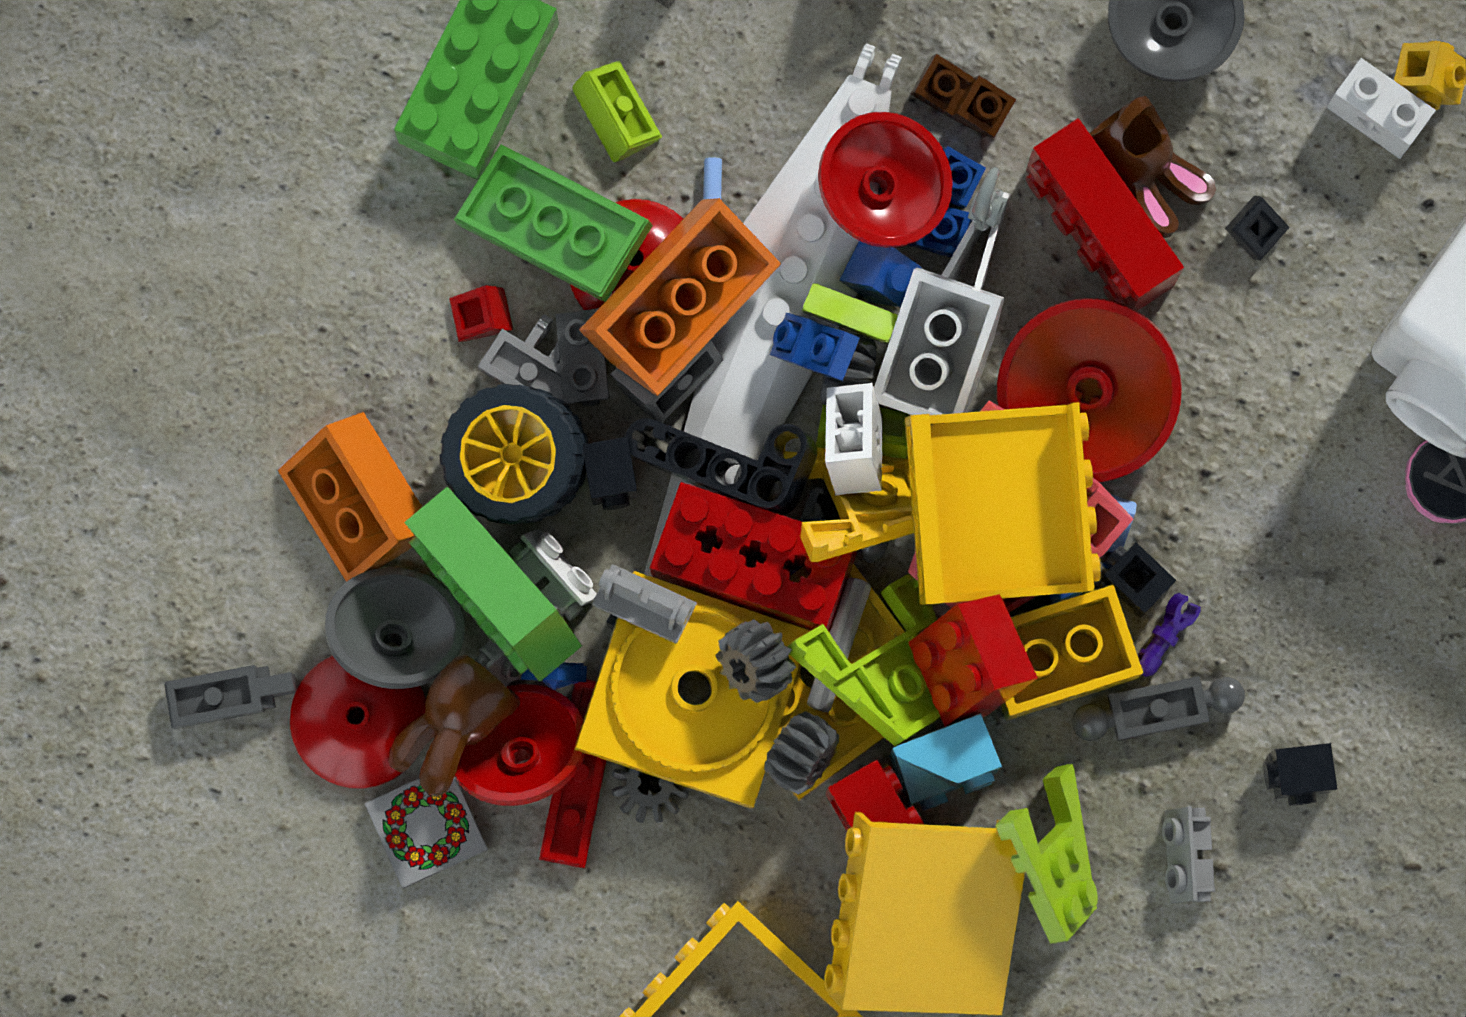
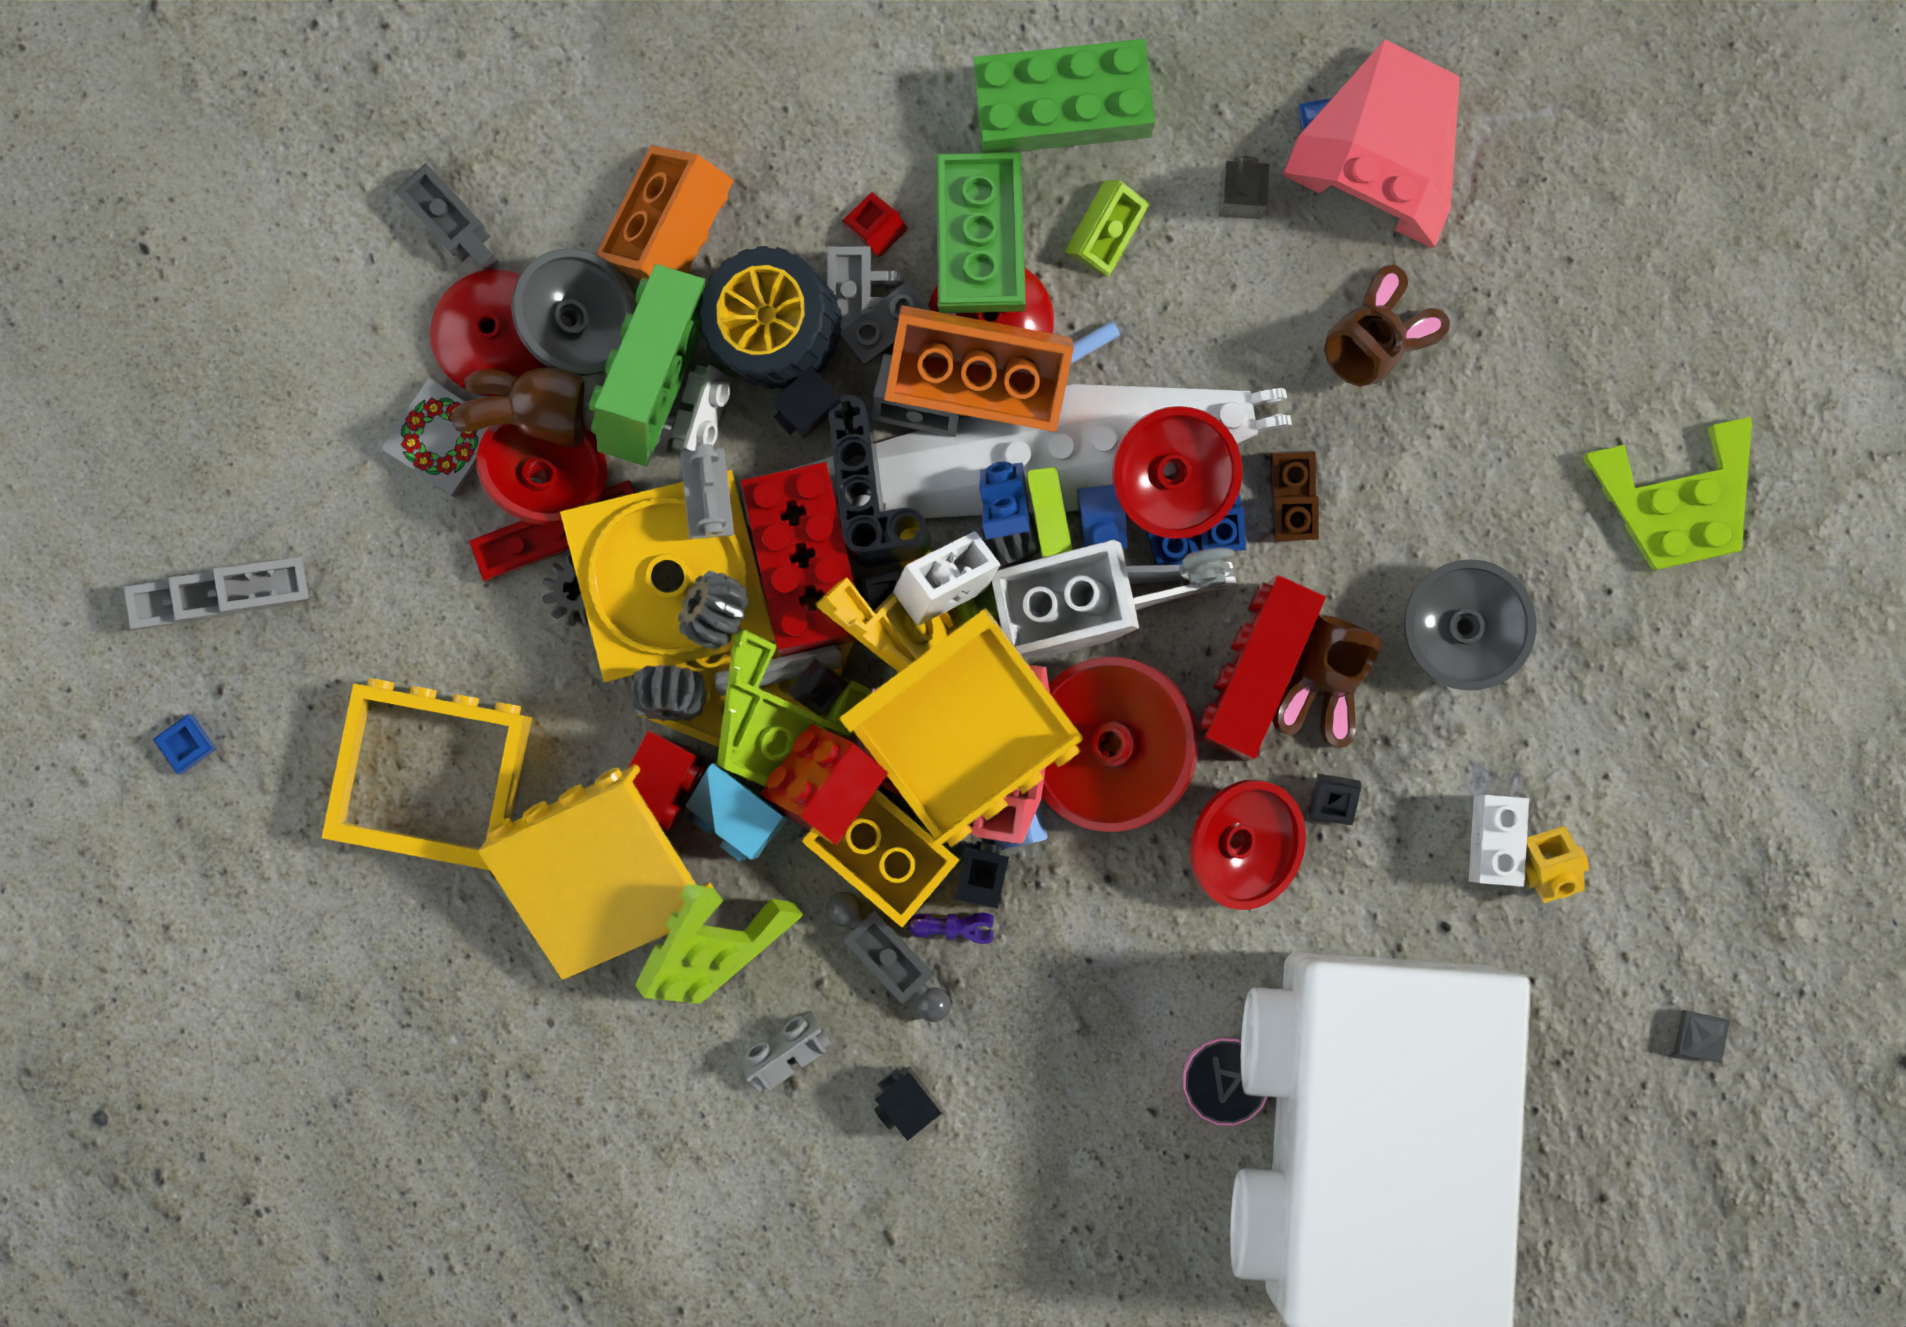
camera: 65 degrees right, 5 degrees up
(562, 676) = (623, 470): blue tile -> none
(878, 617) = (817, 687): none -> black tile
(1253, 325) = (1264, 848): none -> red dish

